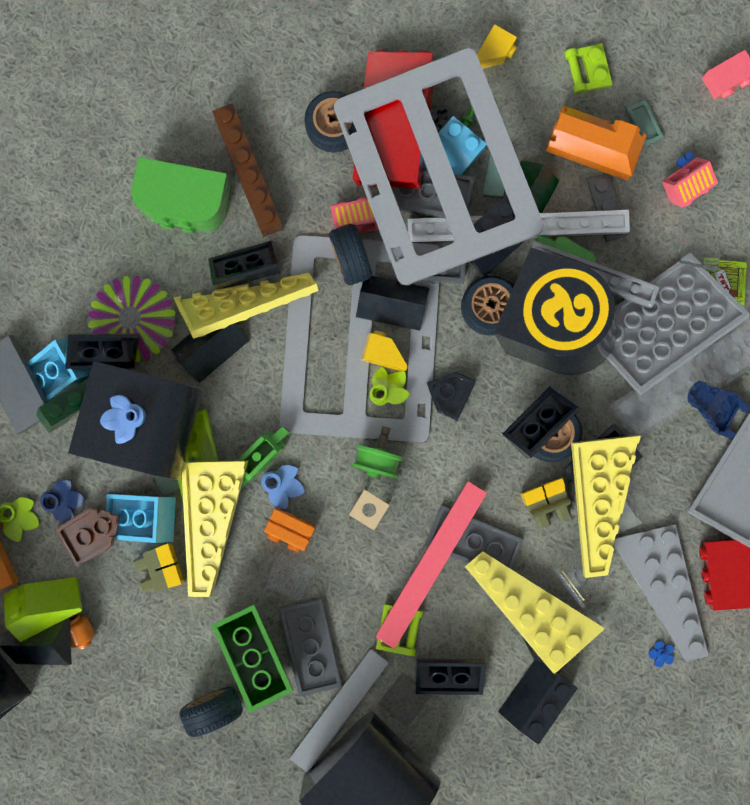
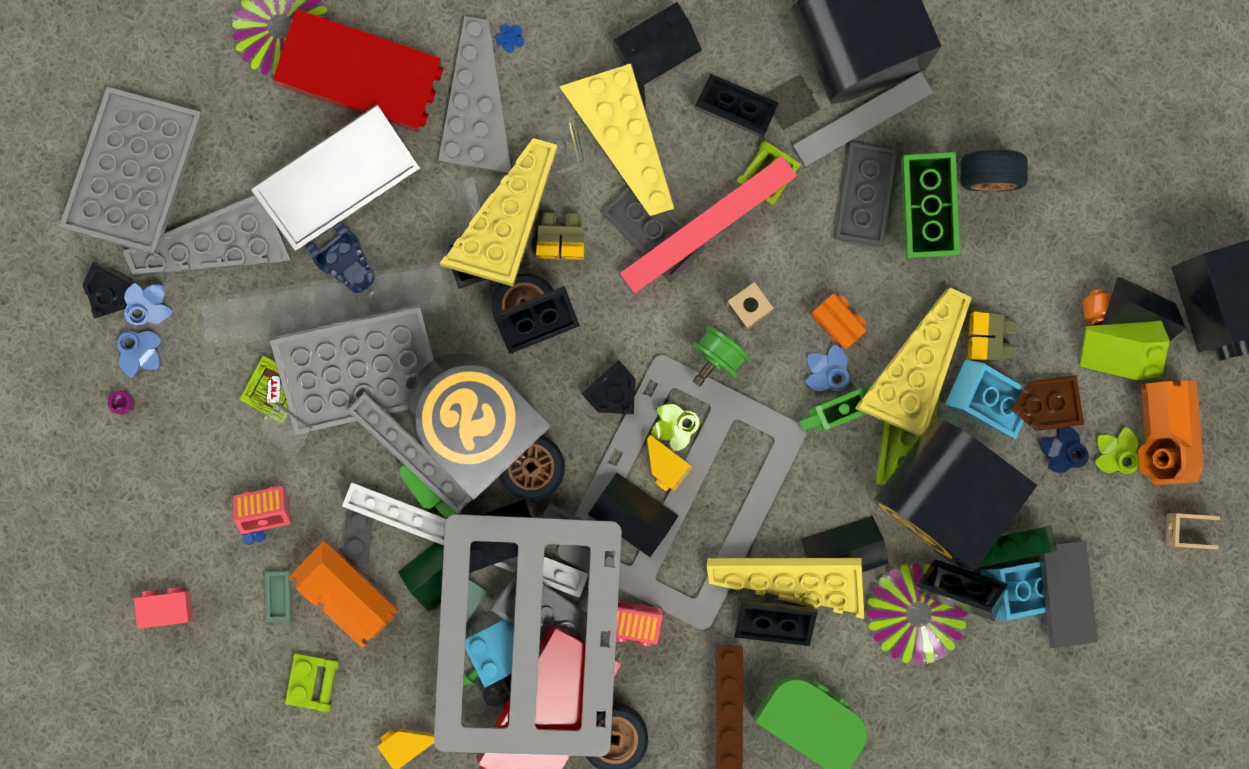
camera: 160 degrees left, 0 degrees up
(120, 418) = (970, 497): medium blue plate -> none
(350, 254) = (658, 581): black wheel -> none

